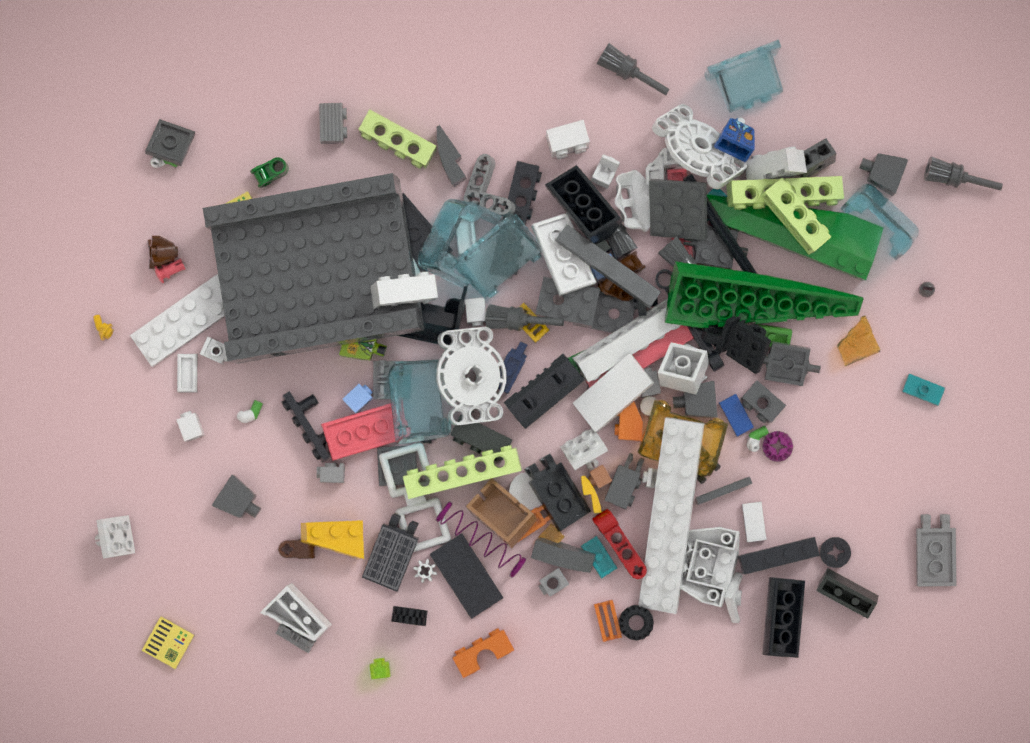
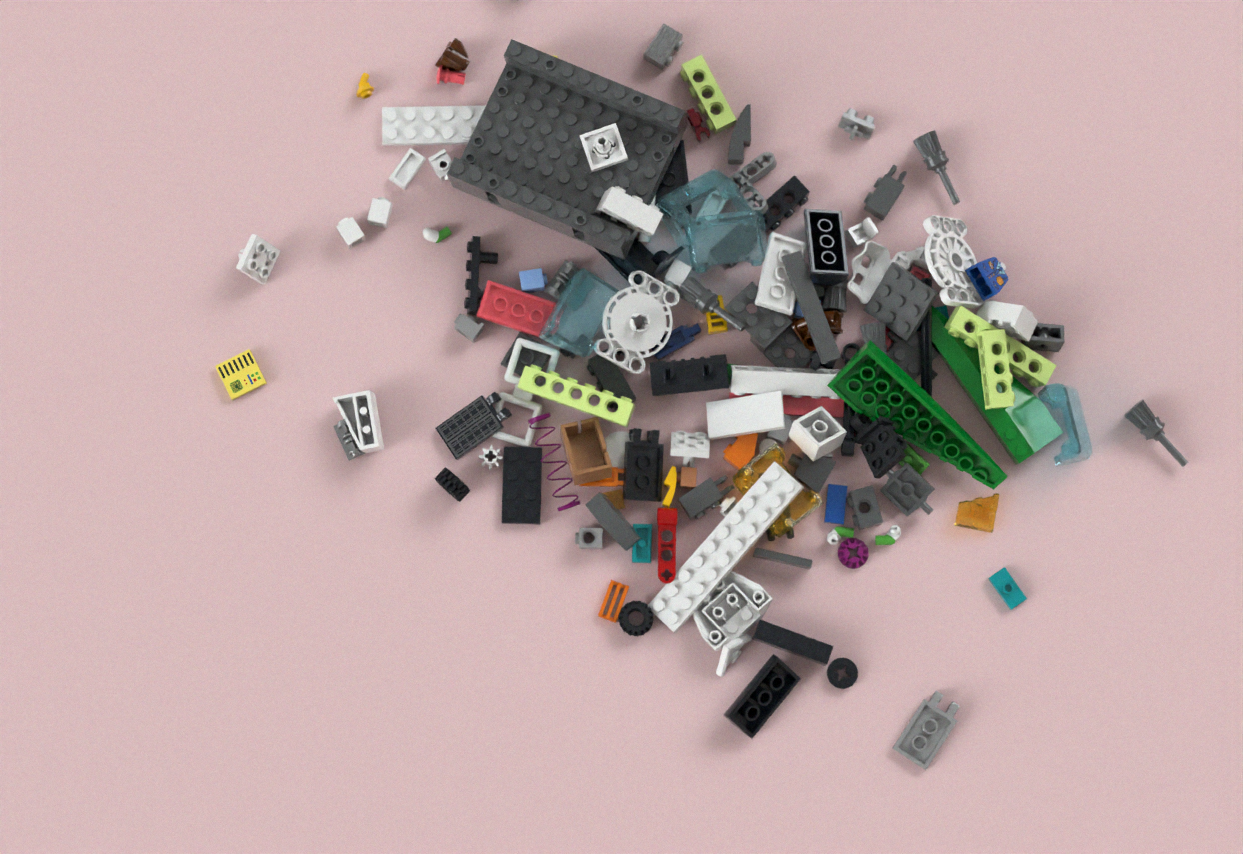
camera: 30 degrees right, 5 degrees down
(177, 460) = (350, 232): none -> white brick
(236, 499) = (377, 295): dark grey torso -> none
(268, 172) = (584, 52): green piece -> none
(300, 550) = (401, 371): reddish brown piece -> none
(336, 536) = (438, 379): yellow wedge -> none
(338, 245) = (601, 141): none -> white plate
(363, 350) = (563, 244): lime torso -> none
(380, 668) = (398, 512): clear neon green plate -> none
(402, 169) = (695, 121): none -> dark red plate
(467, 658) = (475, 553): orange arch -> none
(539, 83) = (855, 125): none -> light grey hips
(567, 139) = (848, 185): white brick -> none
(603, 124) = (885, 194): none -> dark grey hinge
(748, 77) = (1032, 233): clear light blue windscreen -> none
(754, 522) = (791, 602): white tile -> none
(799, 412) = (890, 538): none -> arm
(847, 593) = (829, 712): pearl dark grey brick -> none
(885, 171) = (1095, 386): dark grey torso -> none
(926, 293) = (1063, 510): dark grey hinge -> none

